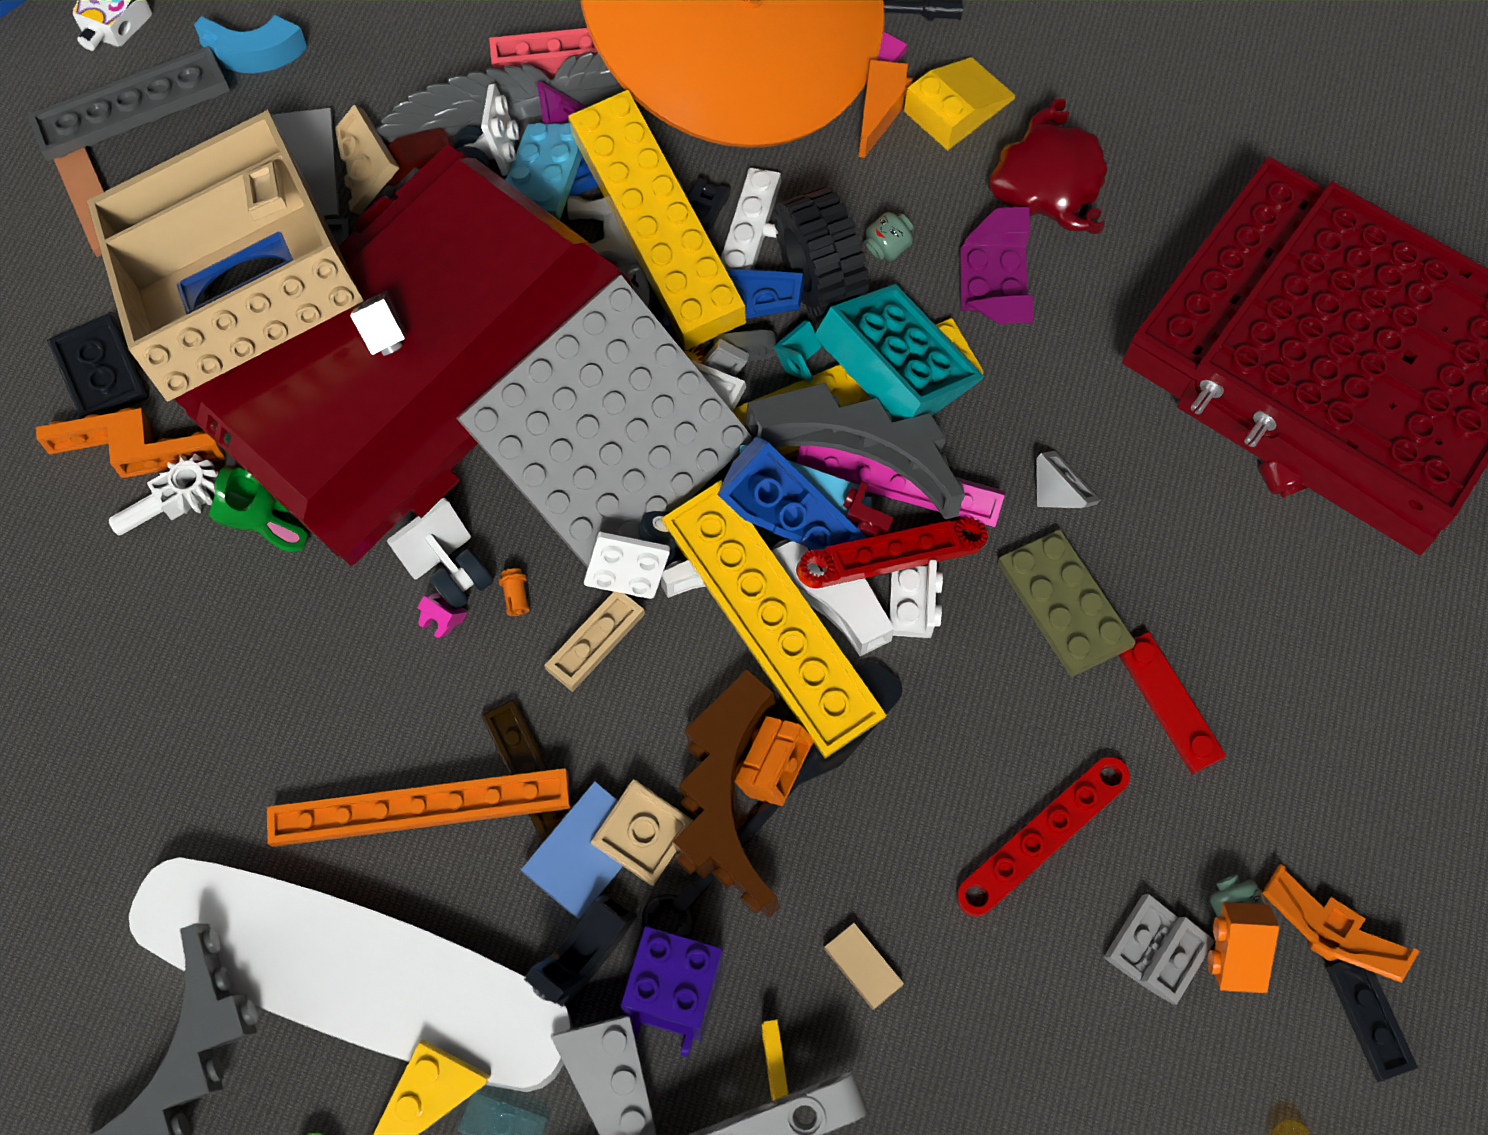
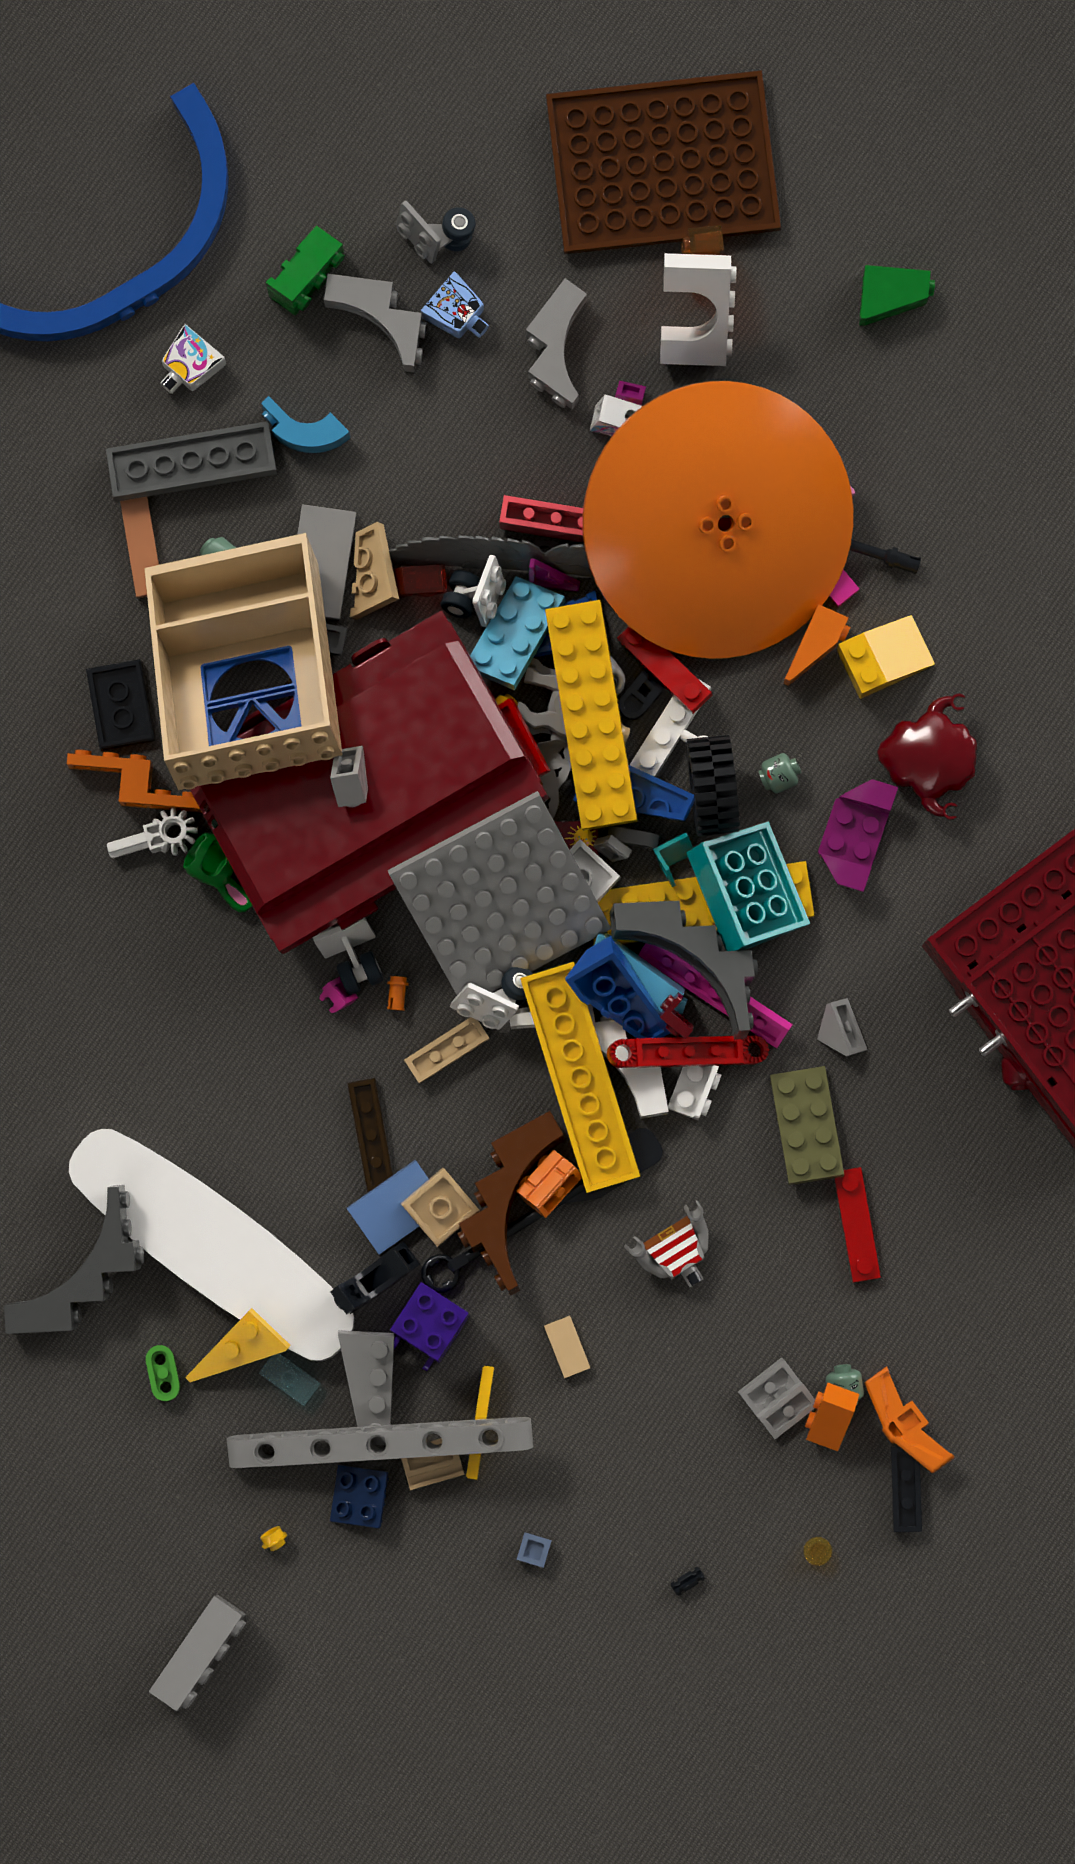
camera: 20 degrees right, 15 degrees up
(264, 191) = (289, 635): tan tile -> none
(418, 807) = (286, 1141): orange plate -> none
(723, 165) = (666, 670): none -> red plate
(961, 793) = (675, 1248): none -> torso
(1043, 836) = (727, 1294): red plate -> none

